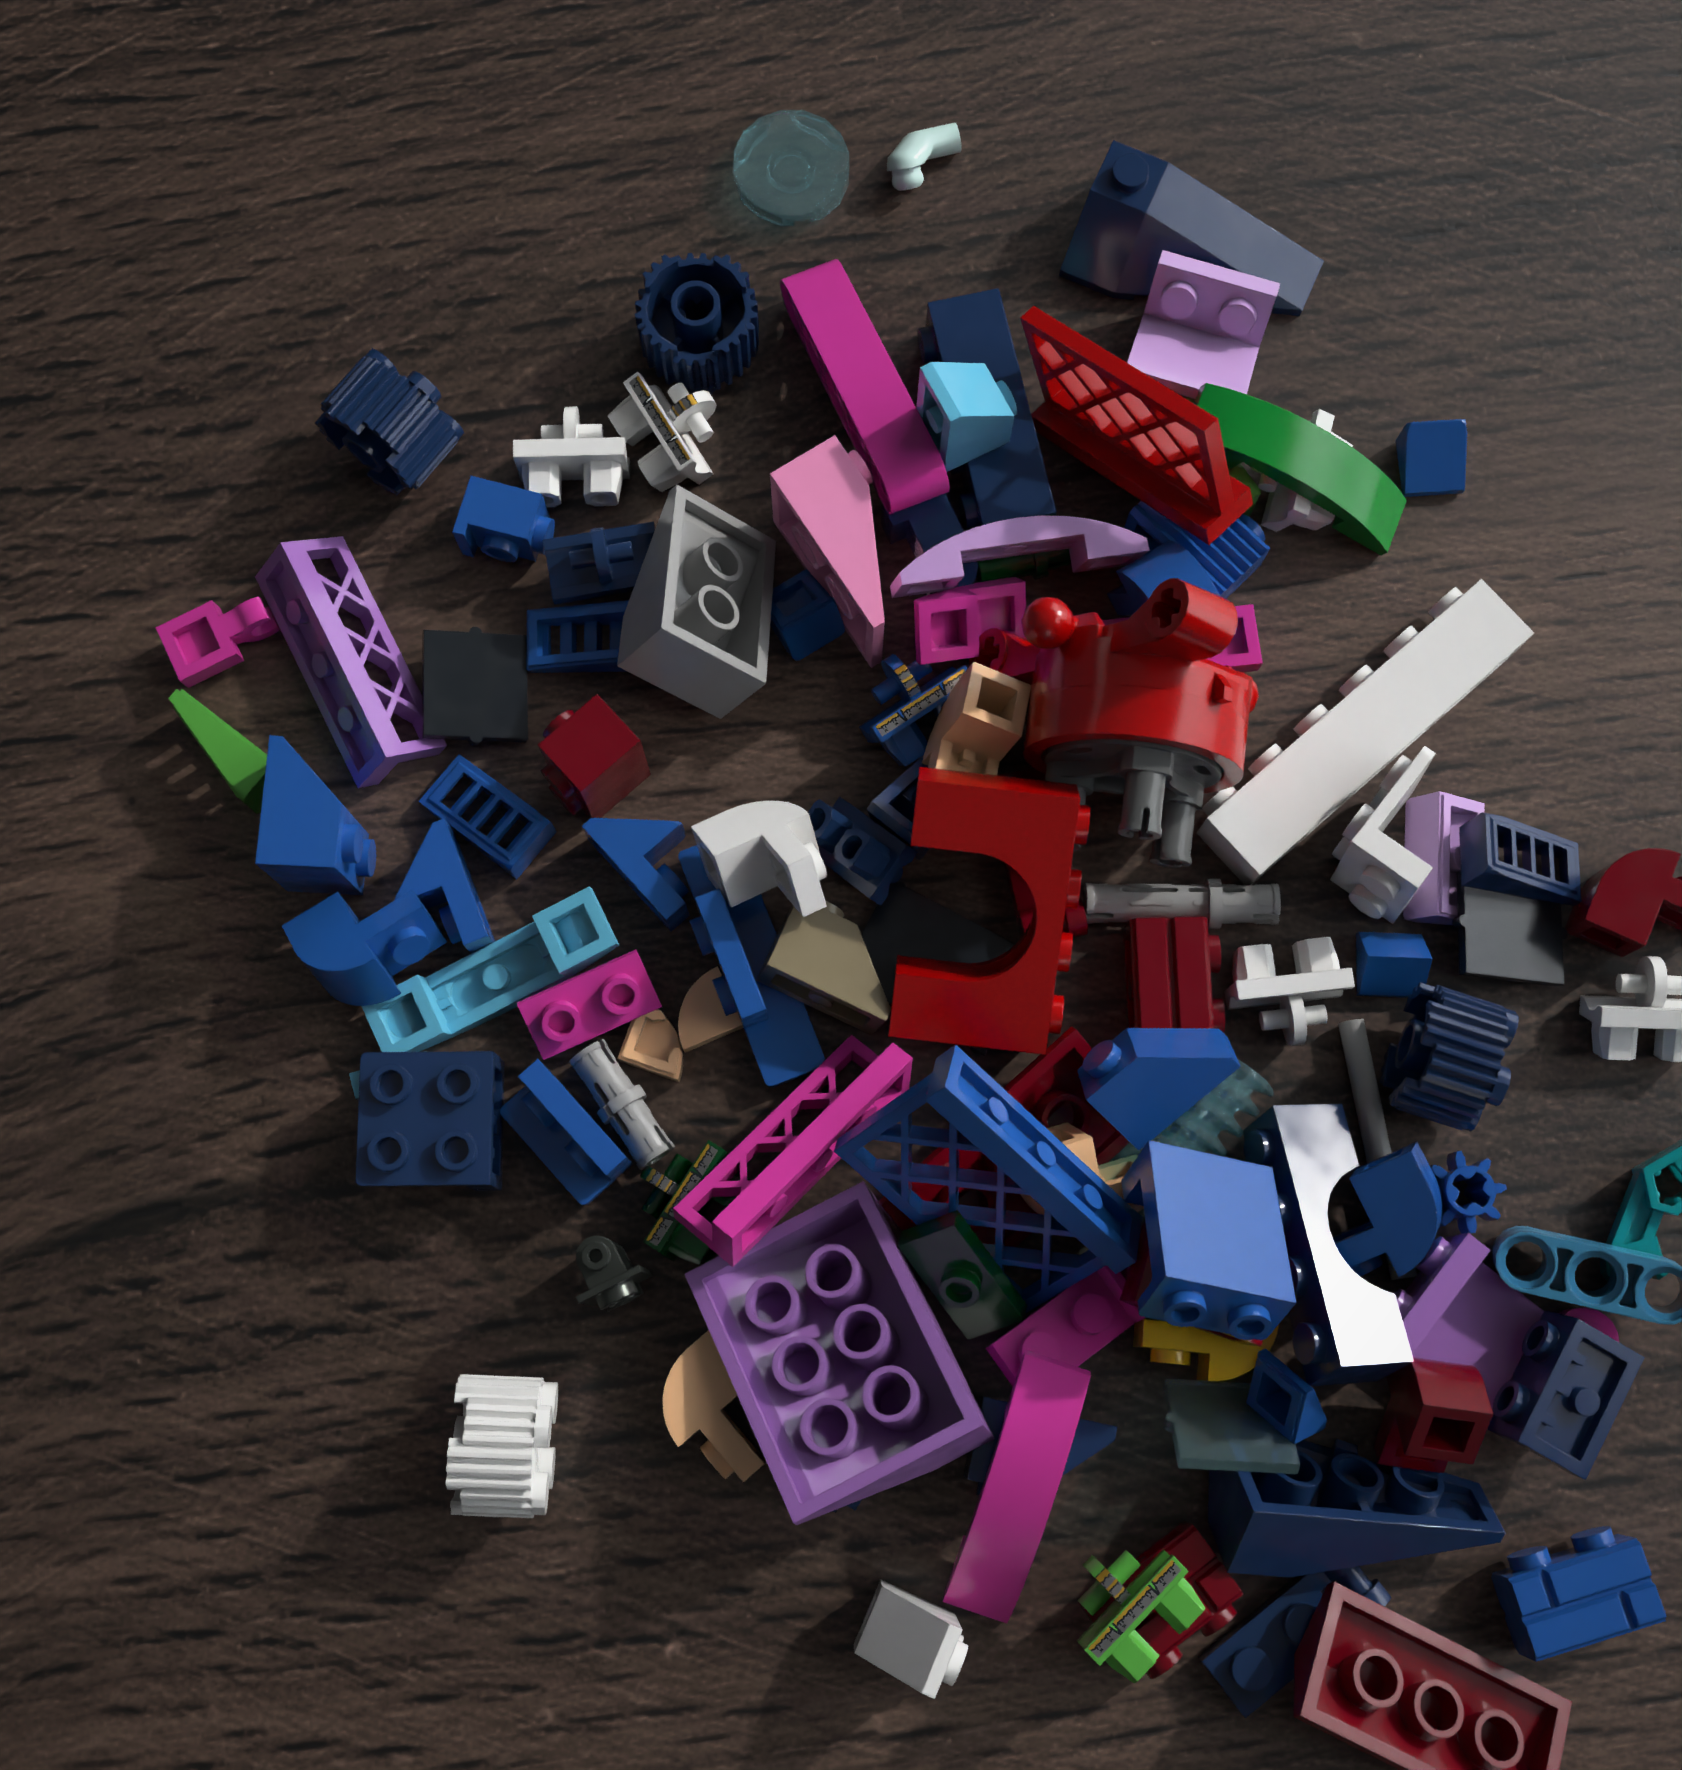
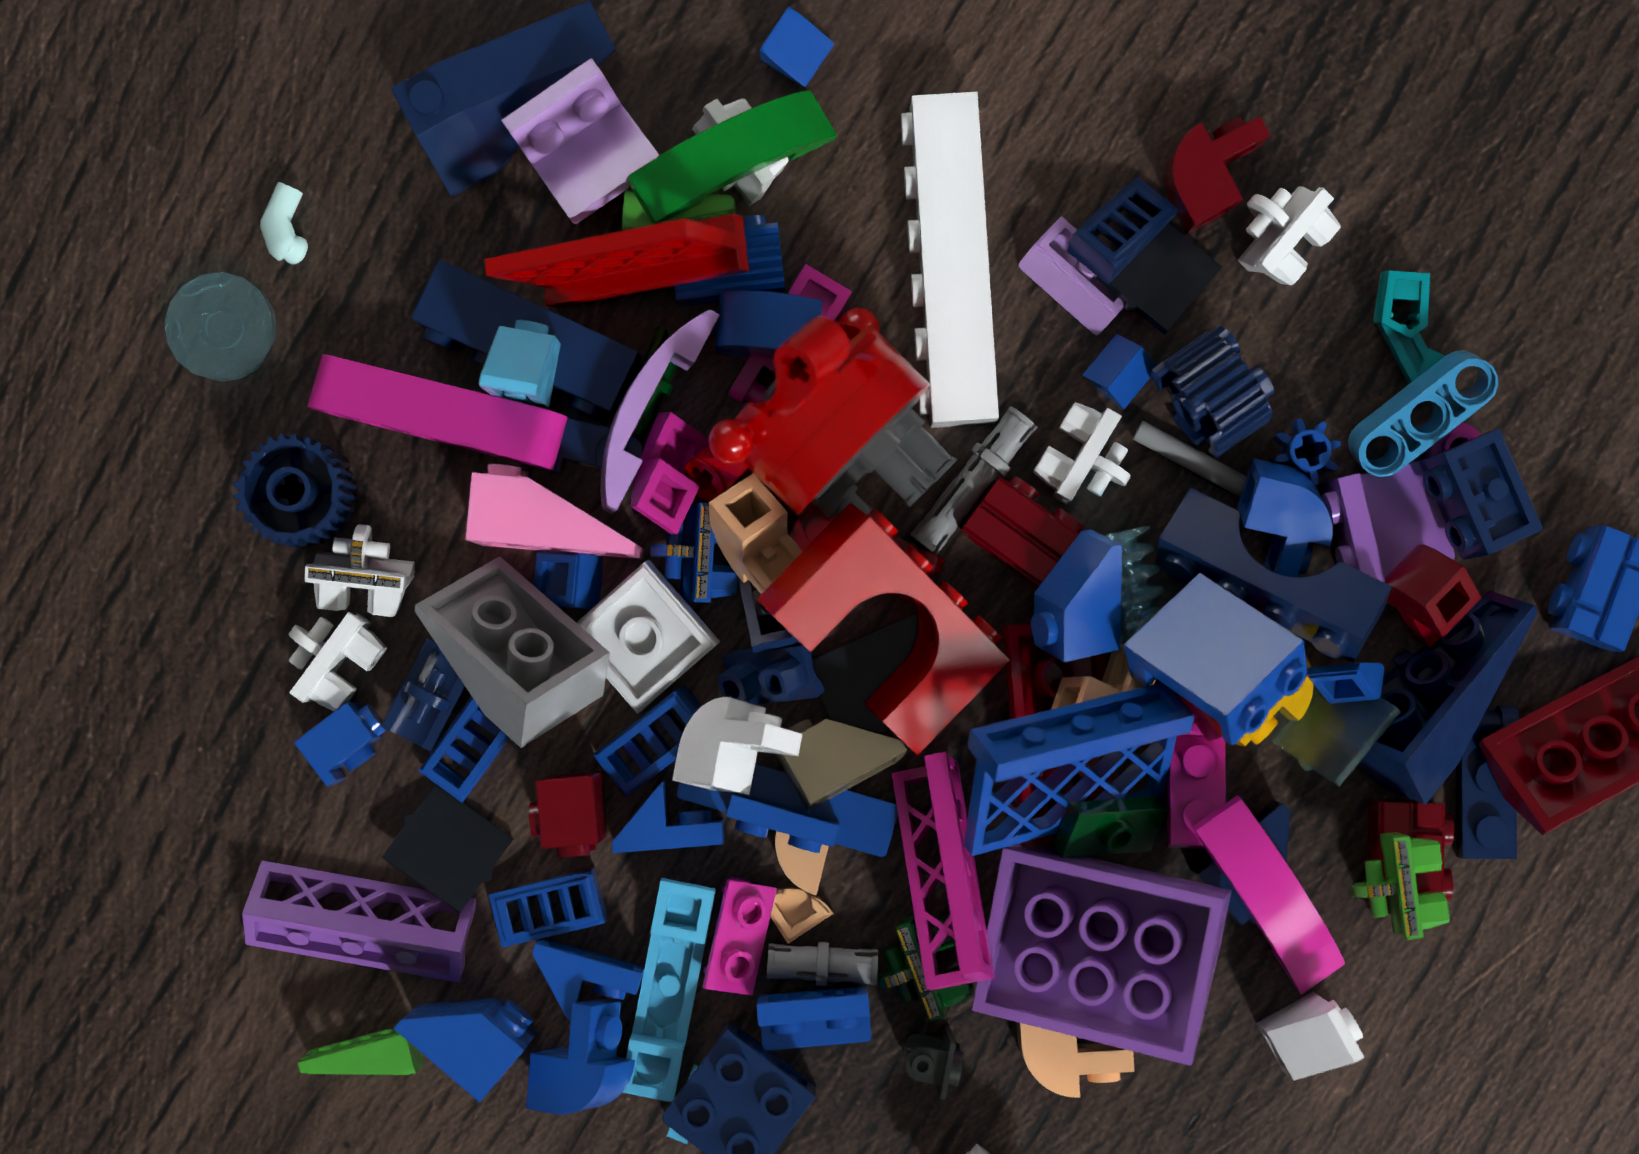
camera: 50 degrees left, 10 degrees up
(207, 640) = (270, 1013): dark pink plate -> none
(389, 422) = (208, 771): dark blue brick -> none
(664, 776) = (685, 705): none -> blue slope
(805, 716) = (648, 635): none -> white plate
(1373, 866) = (1059, 338): white bracket -> none

